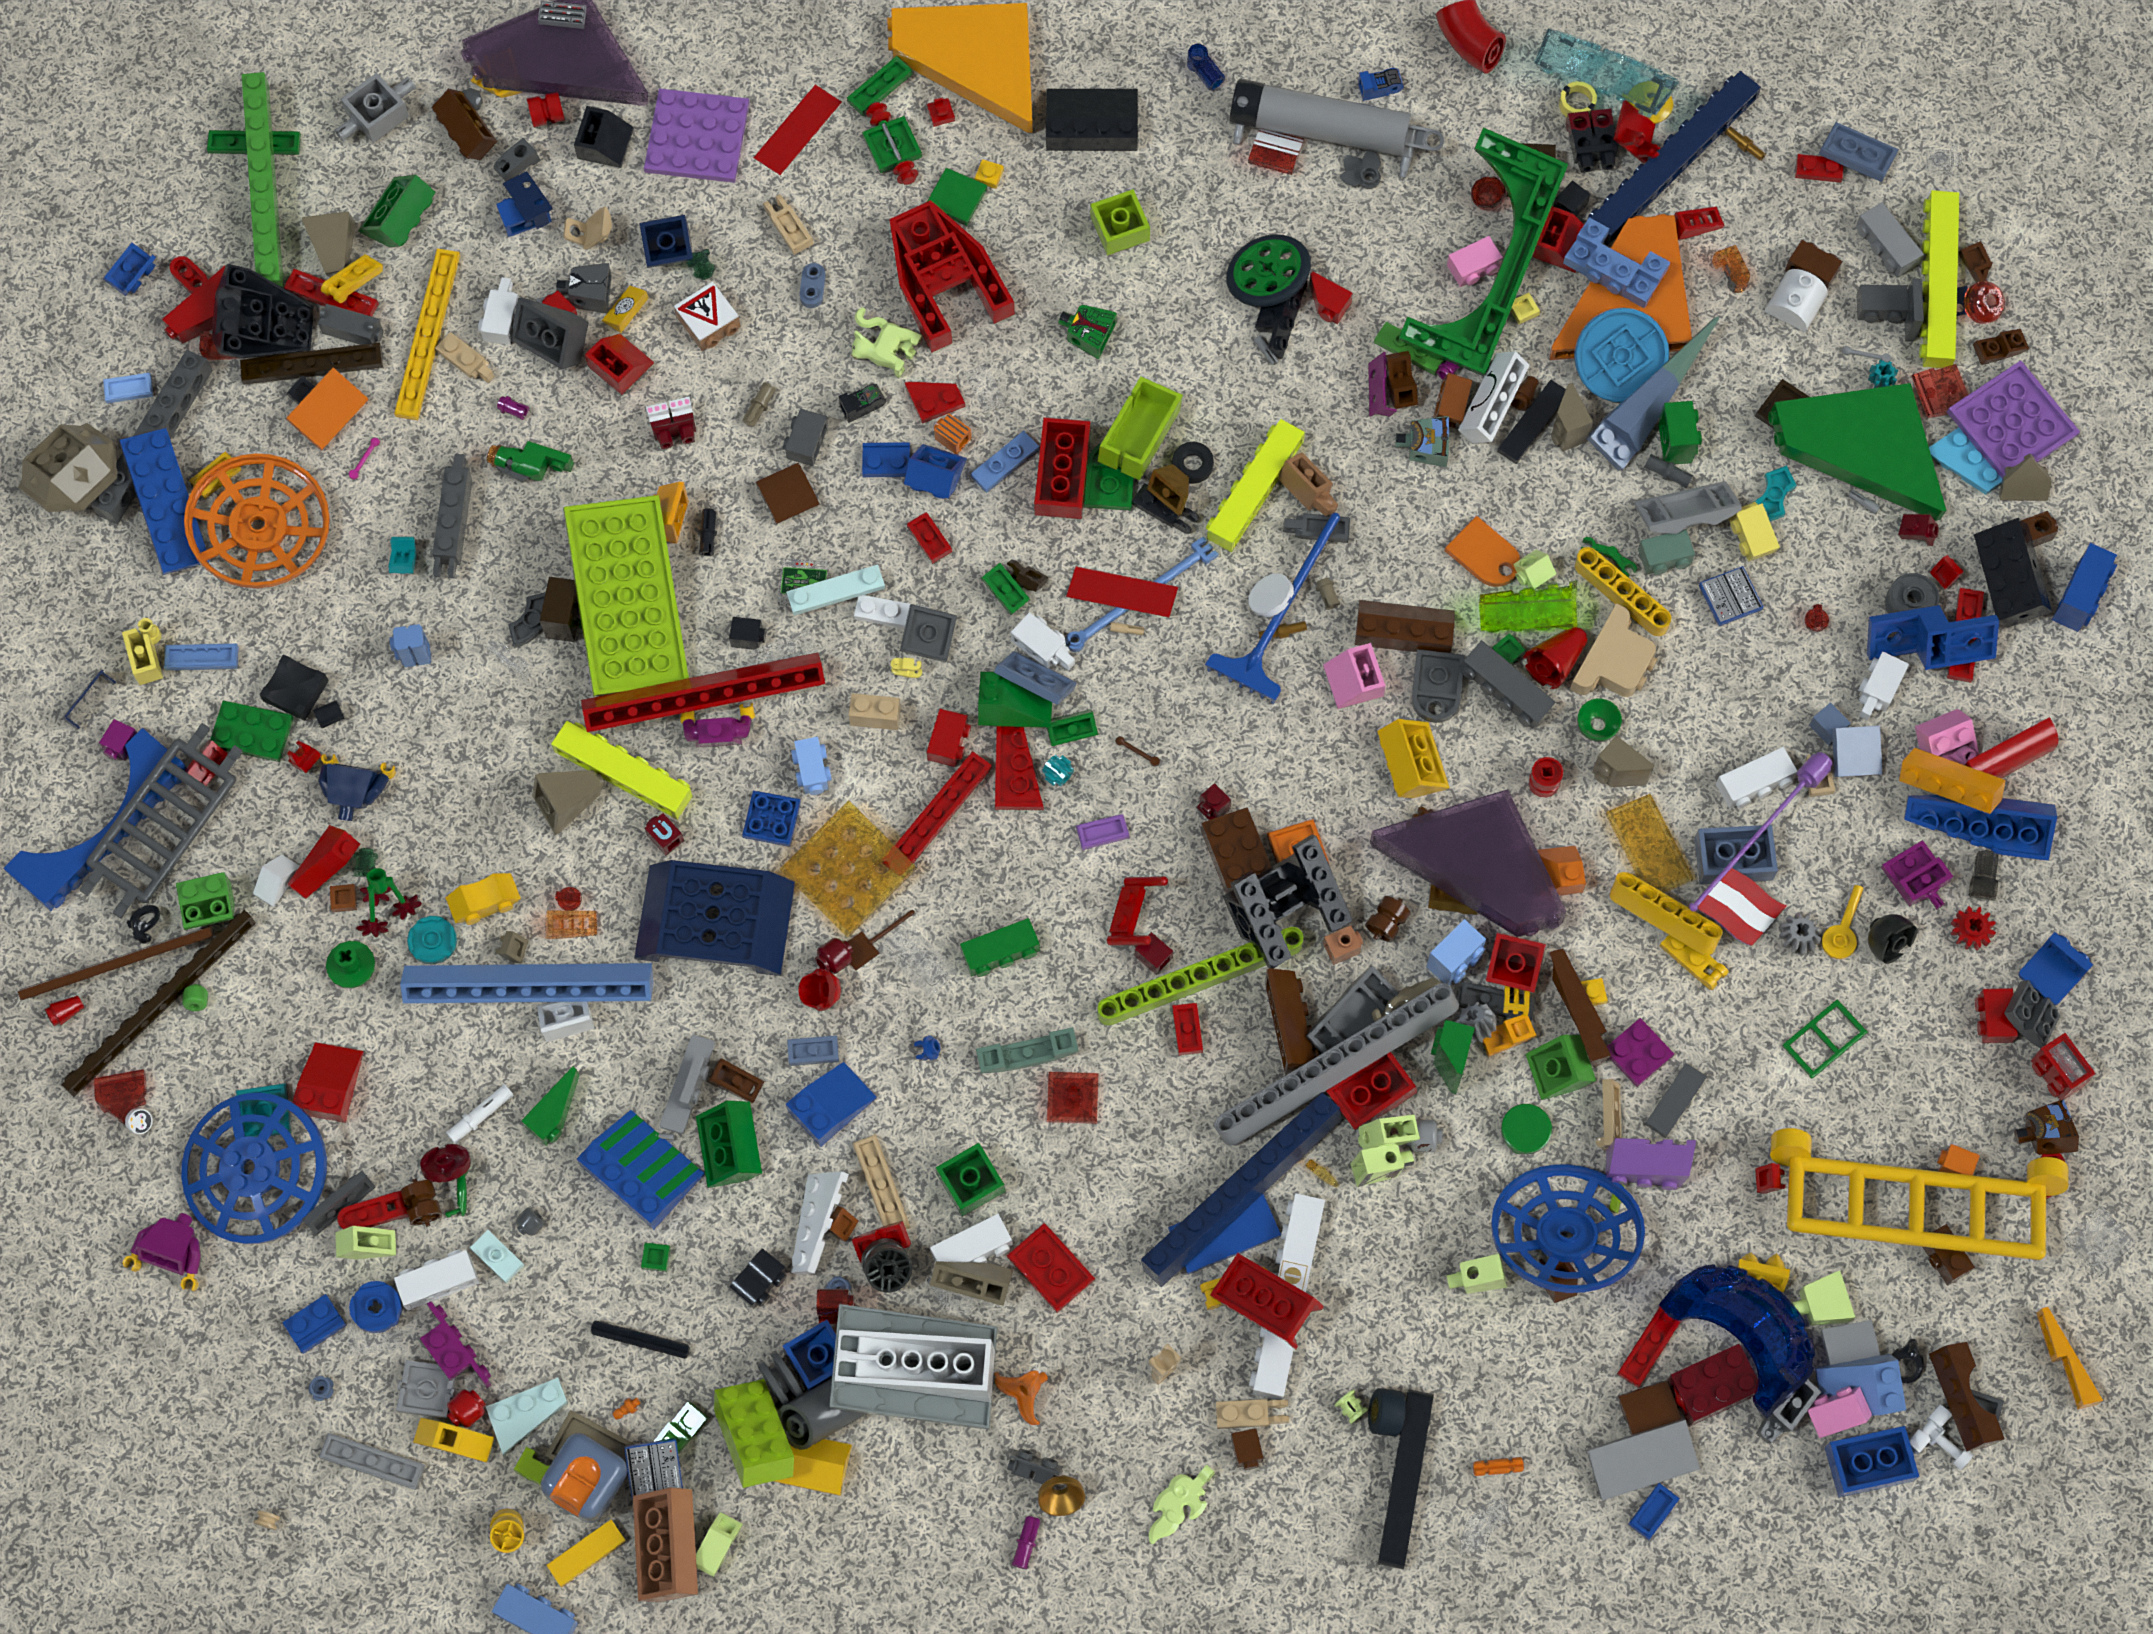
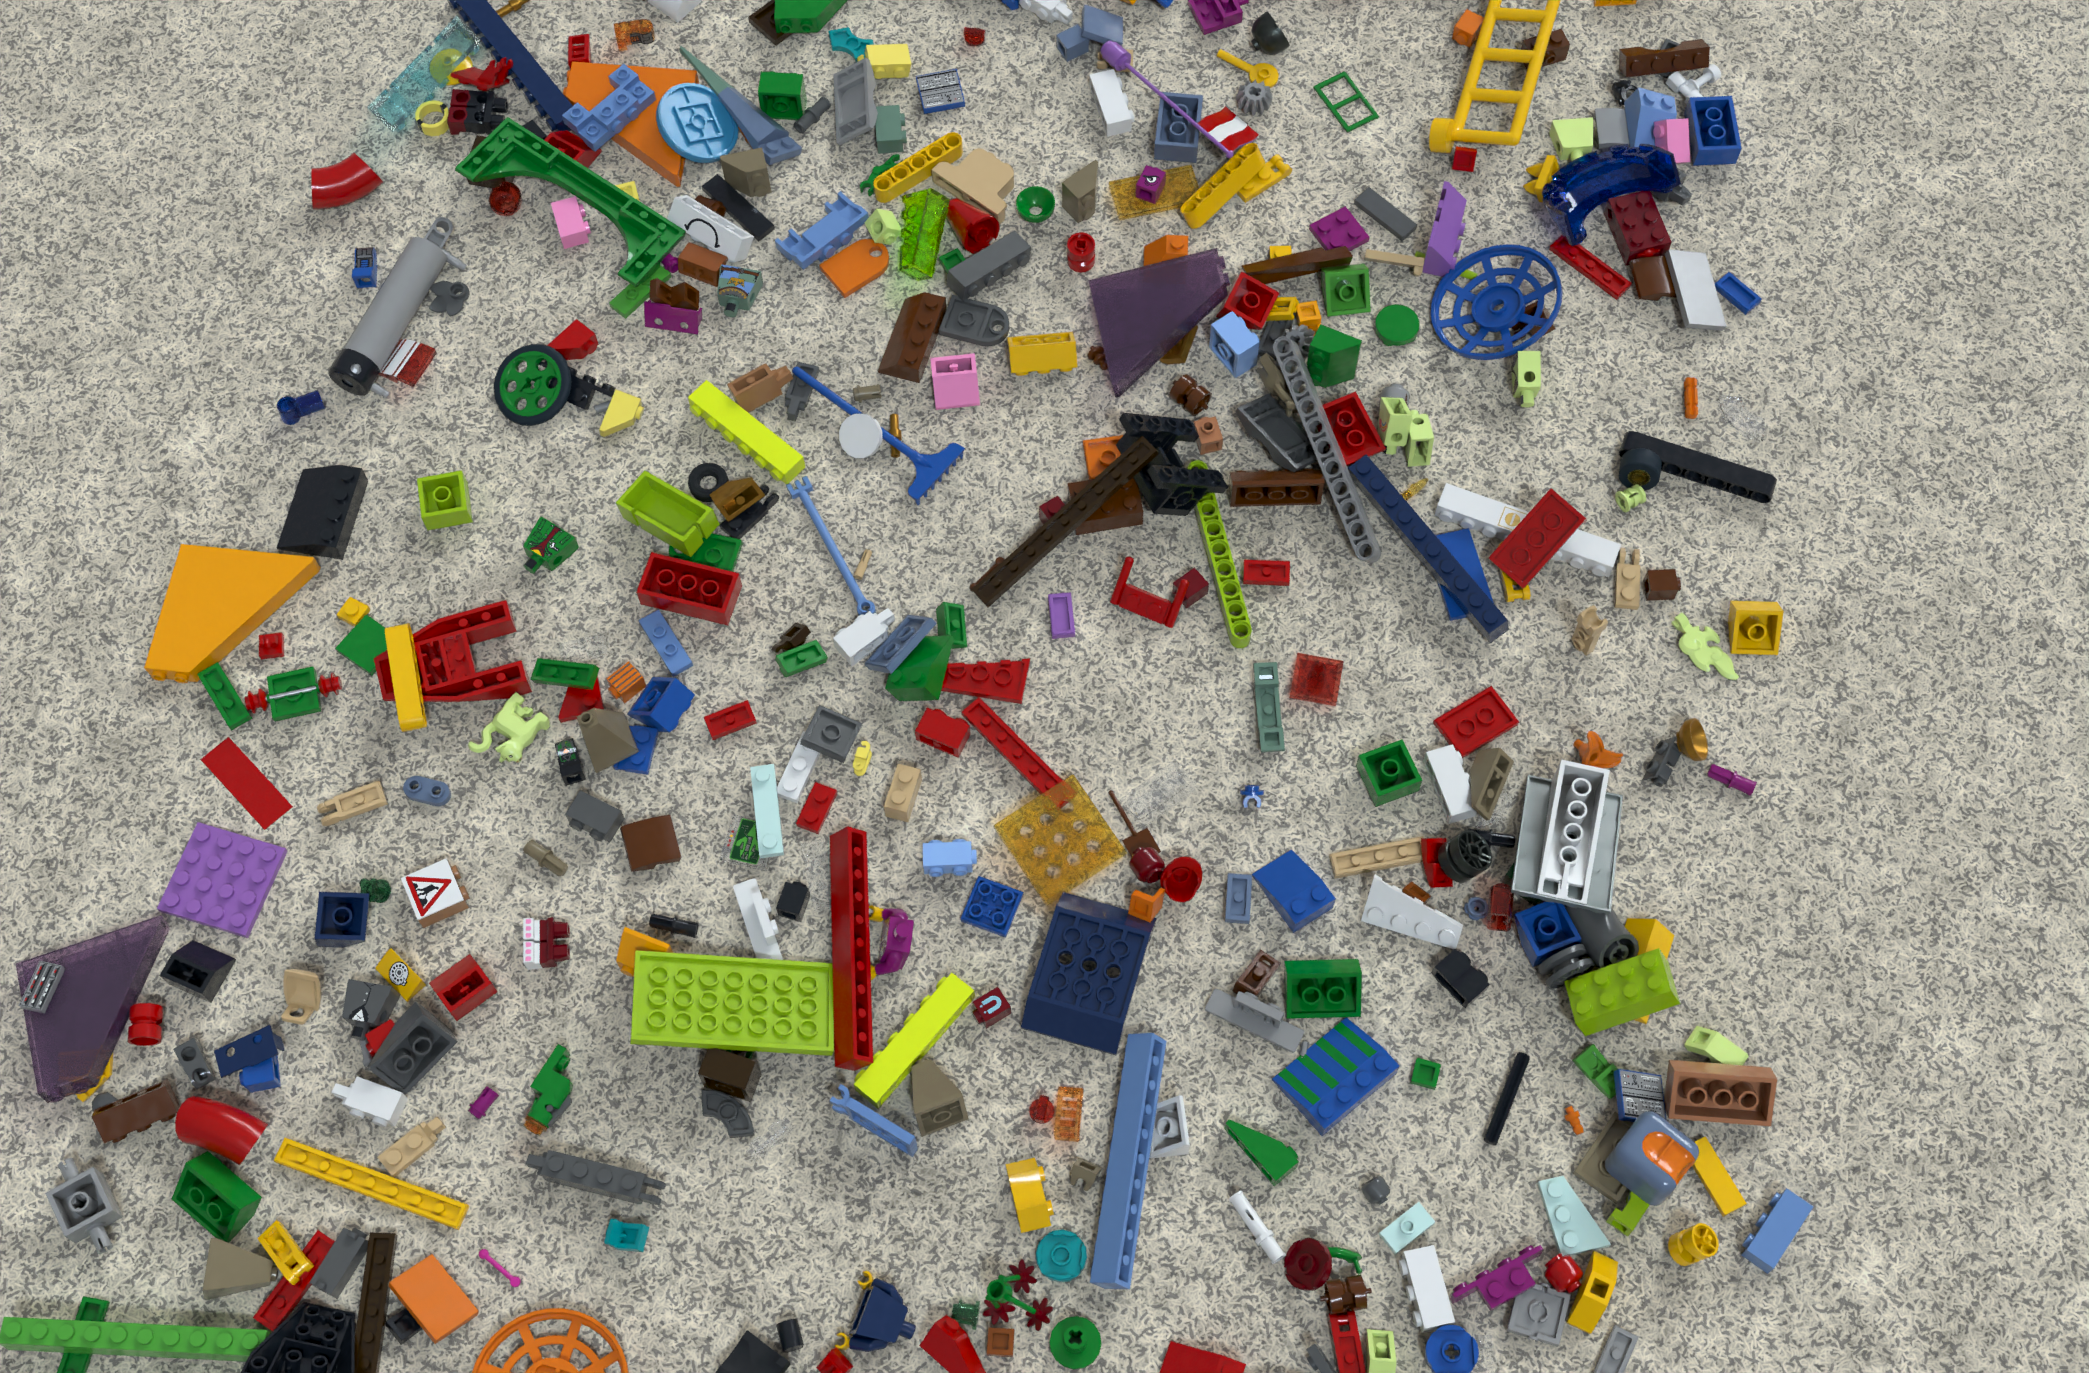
camera: 80 degrees left, 5 degrees down
(410, 645) = (736, 1233): medium blue brick -> none
(455, 193) = (218, 1127): none -> red brick
(531, 745) = (874, 1122): none -> medium blue tile
(721, 607) = (756, 918): none -> white bracket
(788, 961) = (1145, 905): none -> orange panel
(850, 637) = (816, 808): none -> red plate
(885, 426) = (606, 737): none -> dark tan slope
(910, 231) = (405, 677): none -> yellow beam
(917, 1292) = (1497, 839): none -> black axle
(949, 375) = (565, 673): none -> green plate
(1000, 948) = (1163, 716): green brick -> none
(1058, 770) = (996, 640): teal gear -> none
(1122, 591) = (825, 561): red sticker -> none
(1198, 810) = (1065, 521): none -> dark brown plate
(1213, 1554) = (1754, 627): none -> yellow slope
(1254, 360) = (621, 413): none -> light yellow slope
(1511, 514) = (826, 235): none -> medium blue bracket
(1650, 835) = (1150, 184): none -> magenta brick

